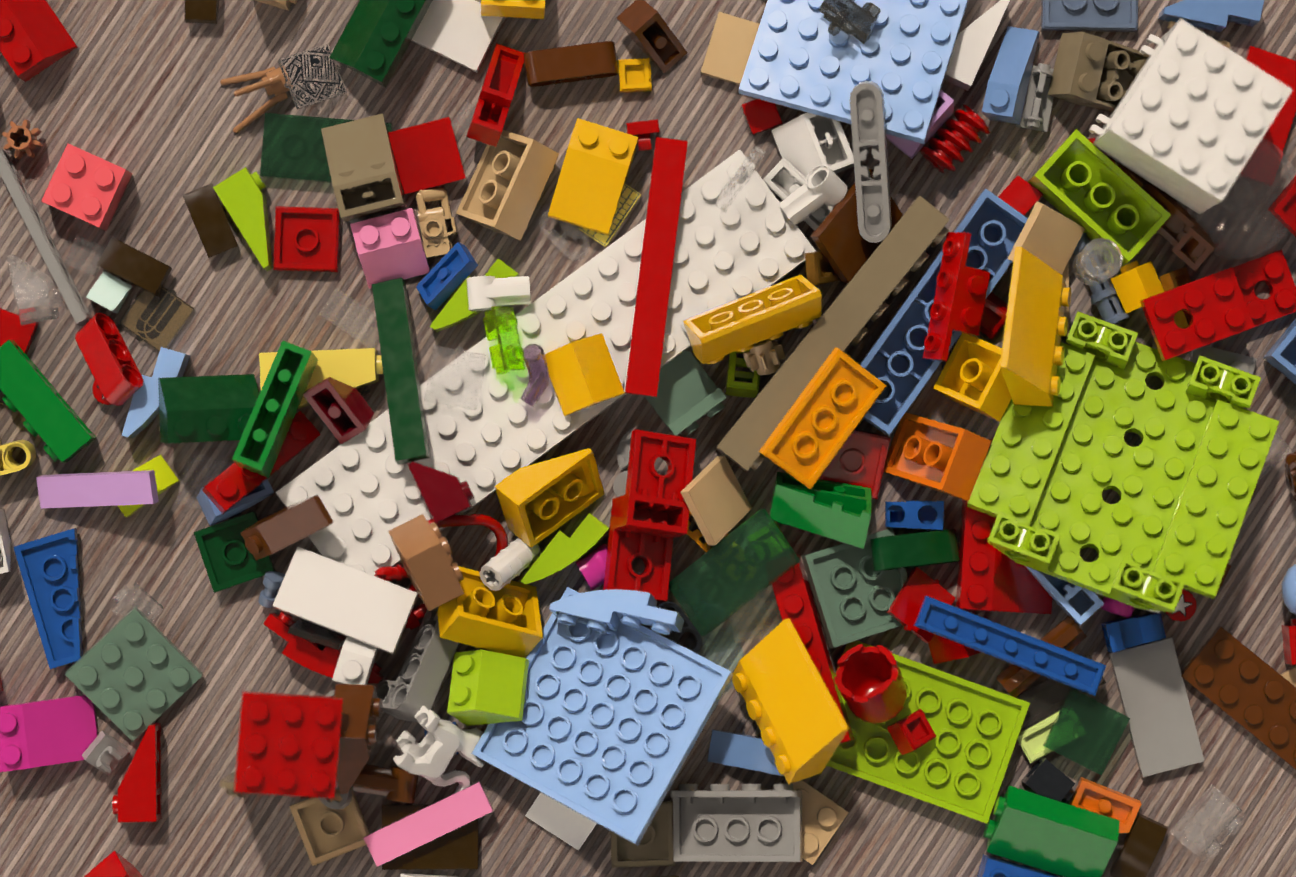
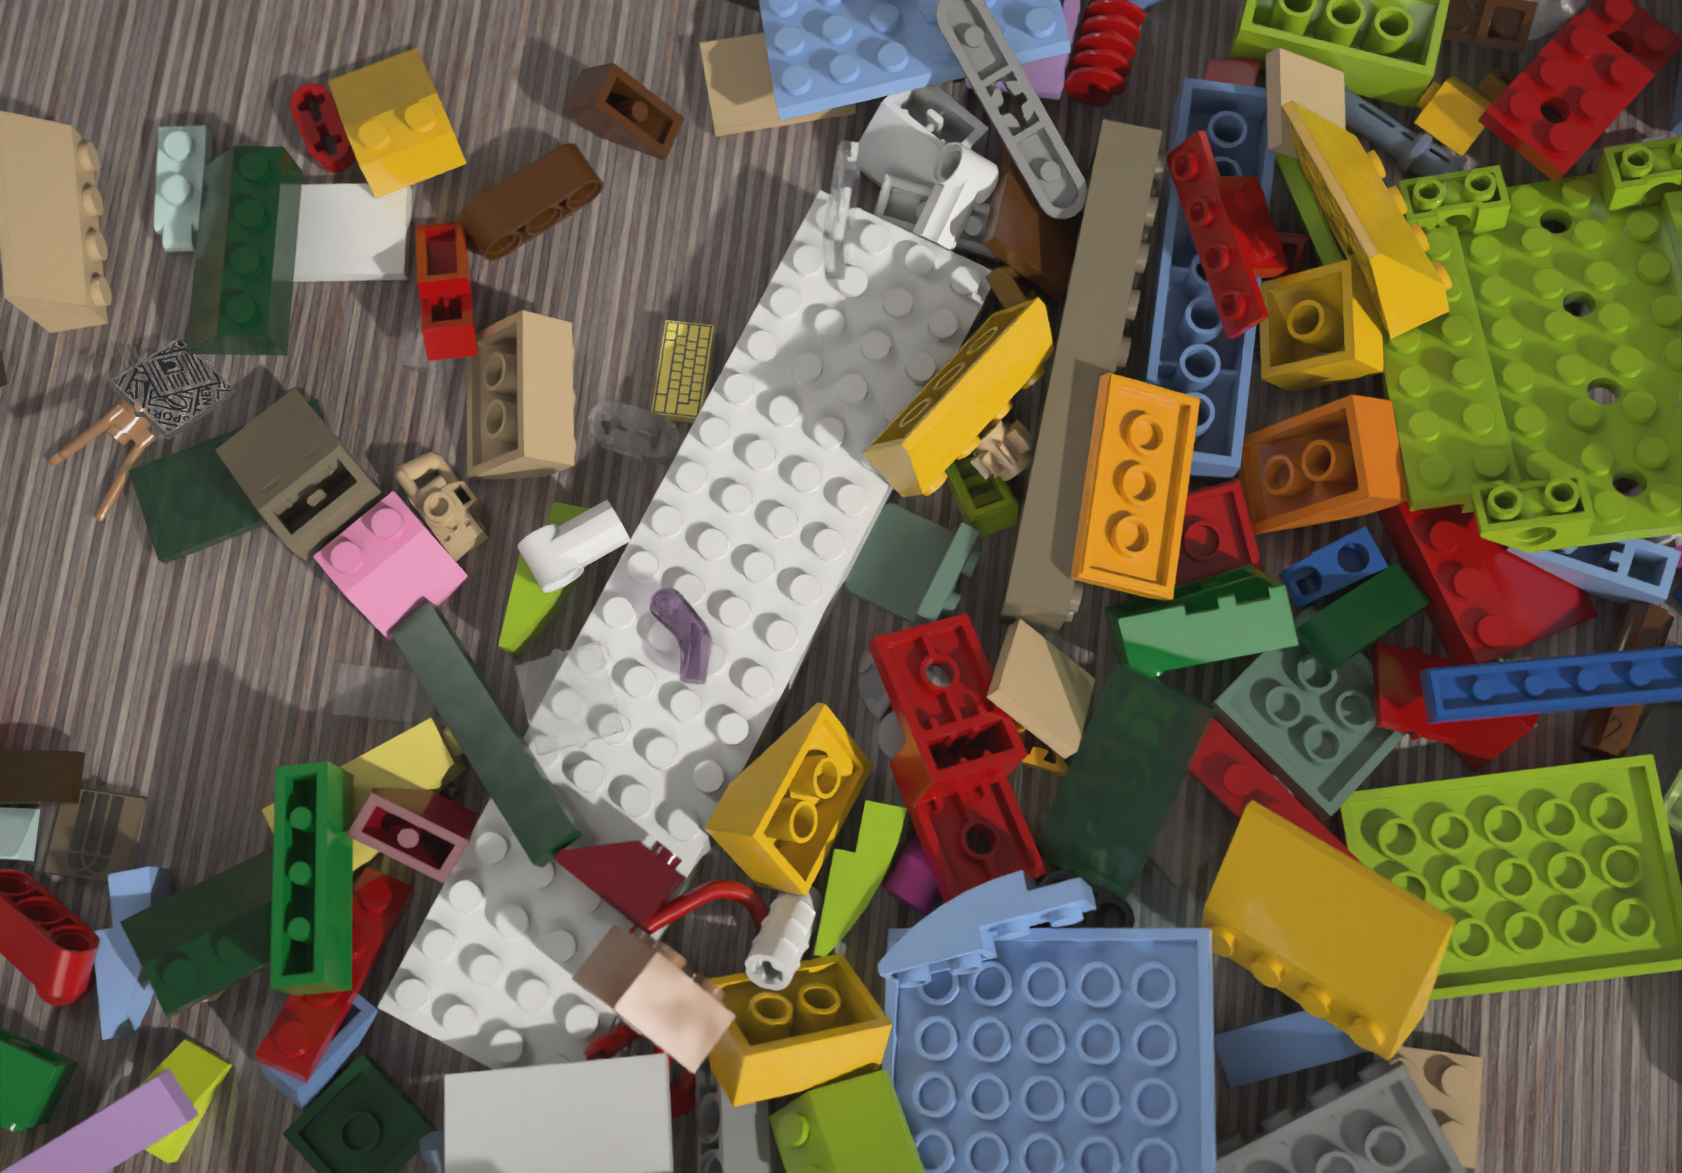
camera: 20 degrees left, 10 degrees down
(210, 220) = (111, 657): dark brown slope -> none
(248, 208) = (163, 614): lime slope -> none
(286, 527) = (414, 1053): reddish brown slope -> none
(306, 239) = (268, 617): red tile -> none
(427, 155) = (386, 415): red tile -> none
(446, 275) = (491, 565): blue plate -> none
(502, 325) = (601, 587): clear neon green hinge -> none
(583, 374) = (754, 598): yellow slope -> none
(593, 176) = (633, 328): yellow slope -> none
(635, 75) = (627, 178): yellow tile -> none
(643, 130) = (674, 239): red tile -> none
(656, 267) = (786, 401): red tile -> none
(761, 115) = (820, 145): red tile -> none
(871, 683) = (1423, 837): red cylinder -> none
(911, 732) = (1510, 887): red slope -> none
(1097, 262) = (1390, 98): clear wheel -> none

